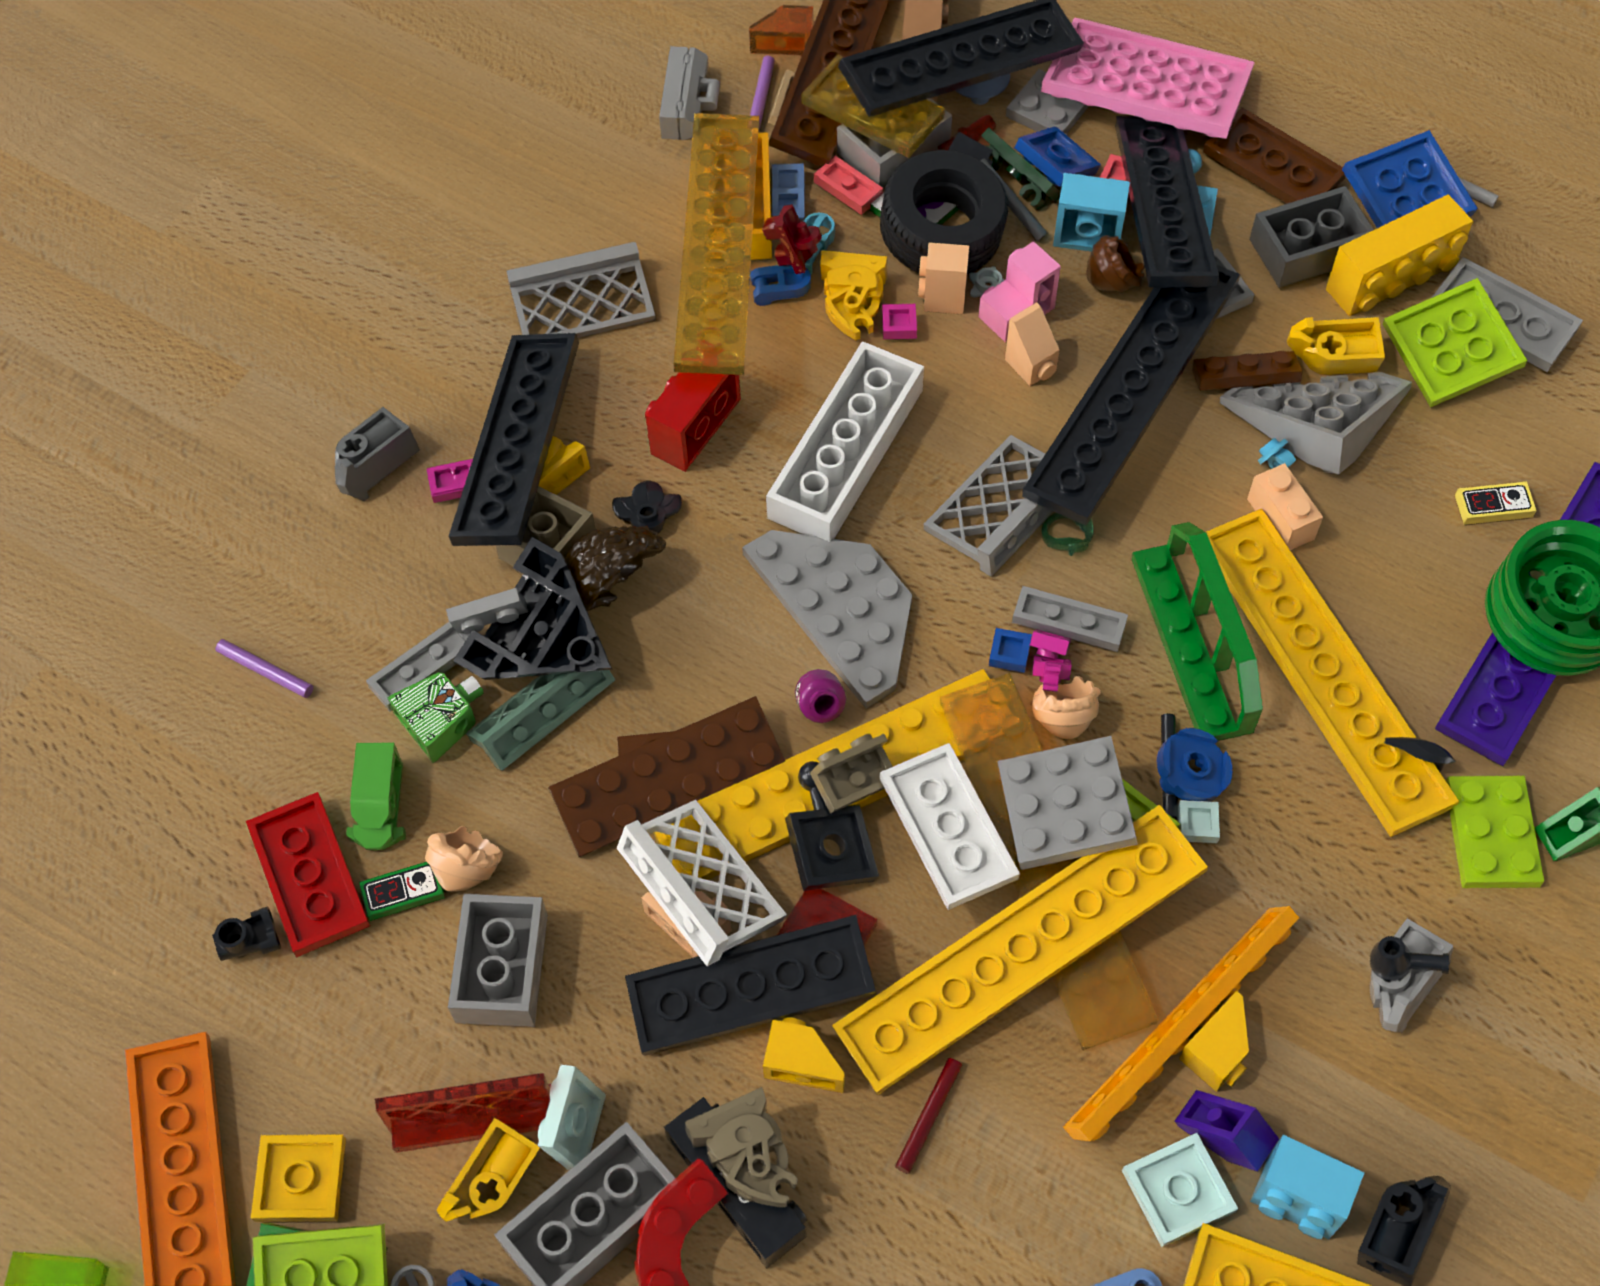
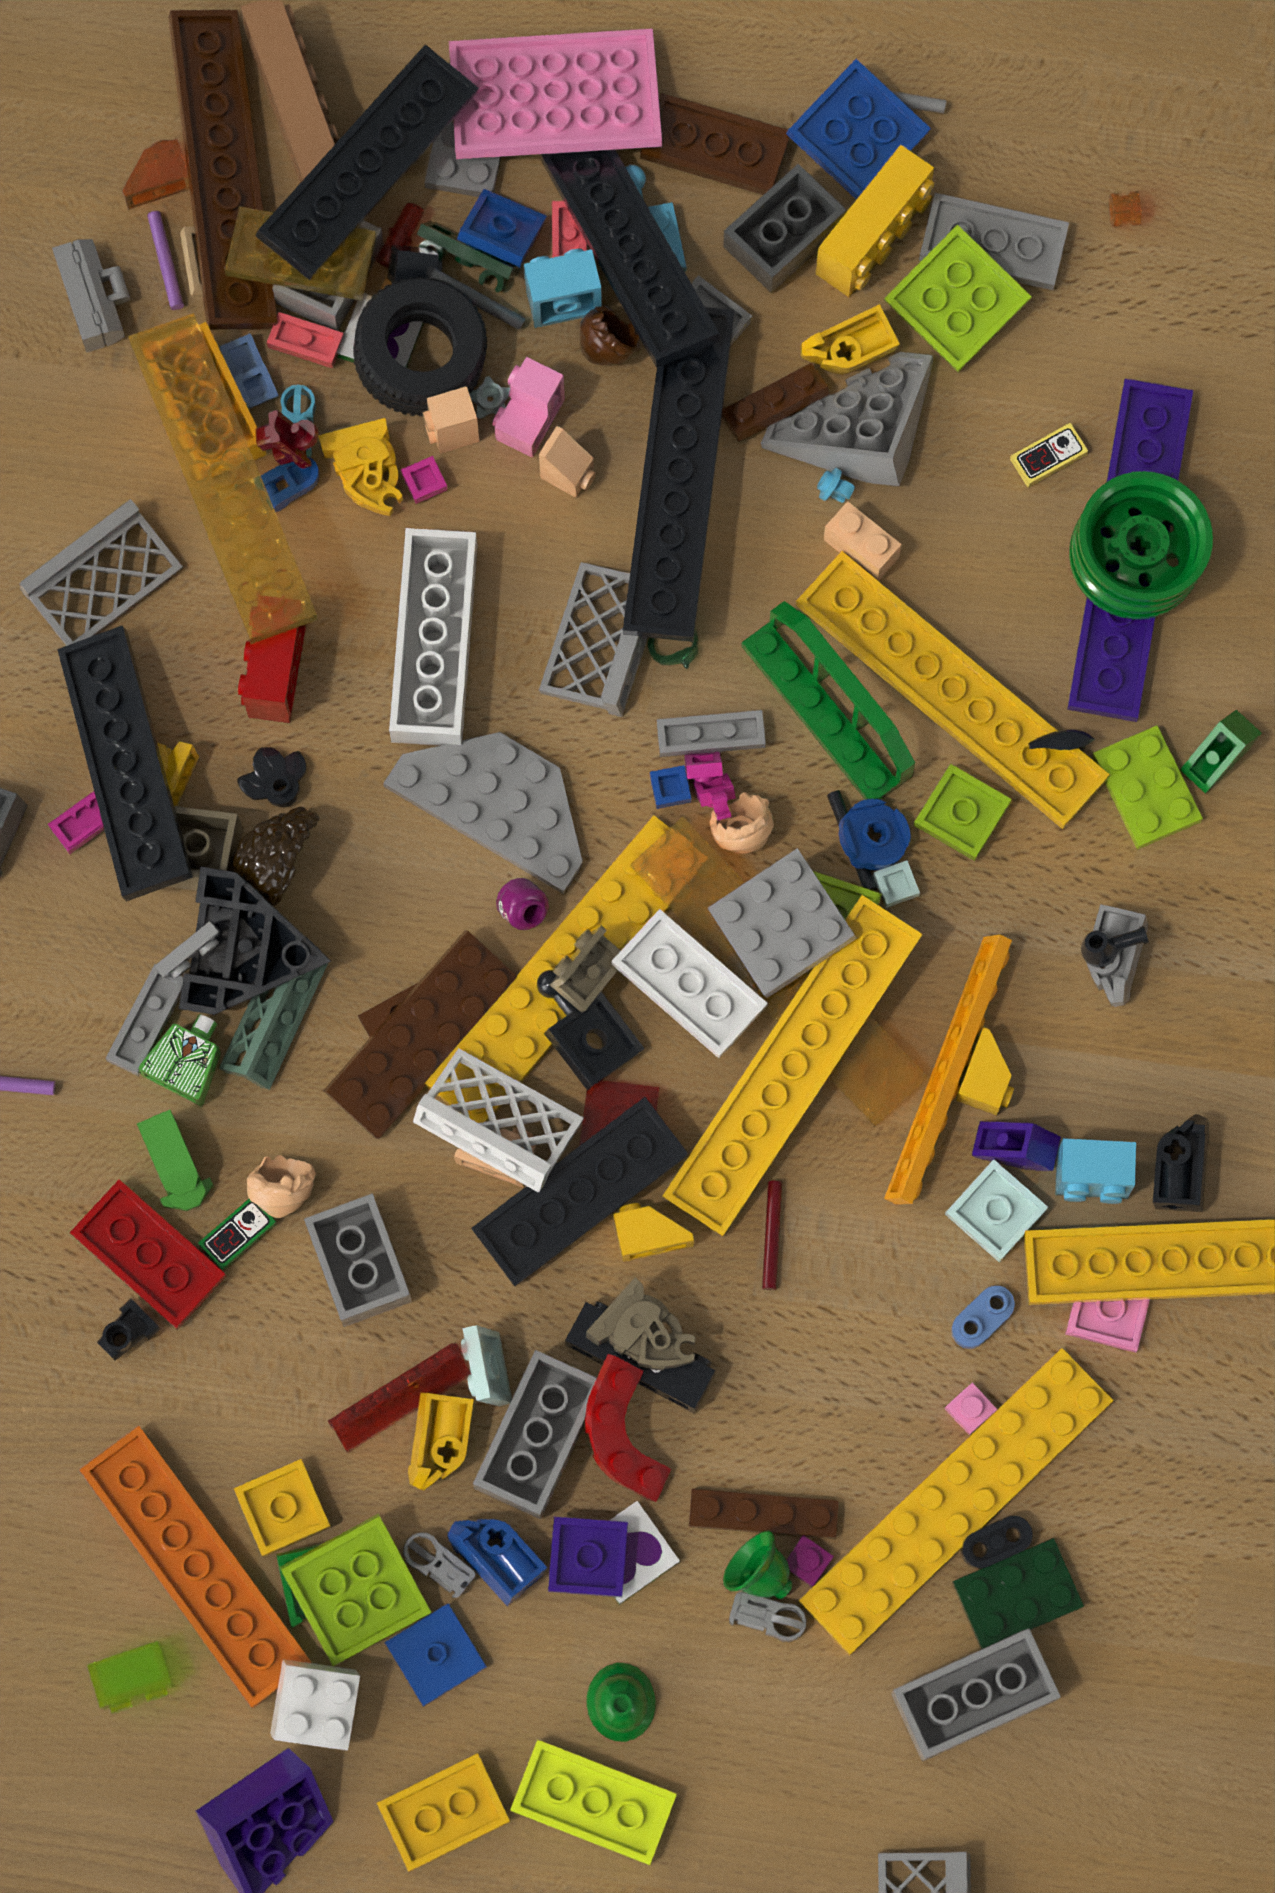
camera: 25 degrees left, 15 degrees up
(1292, 781) = (962, 812): none -> lime plate

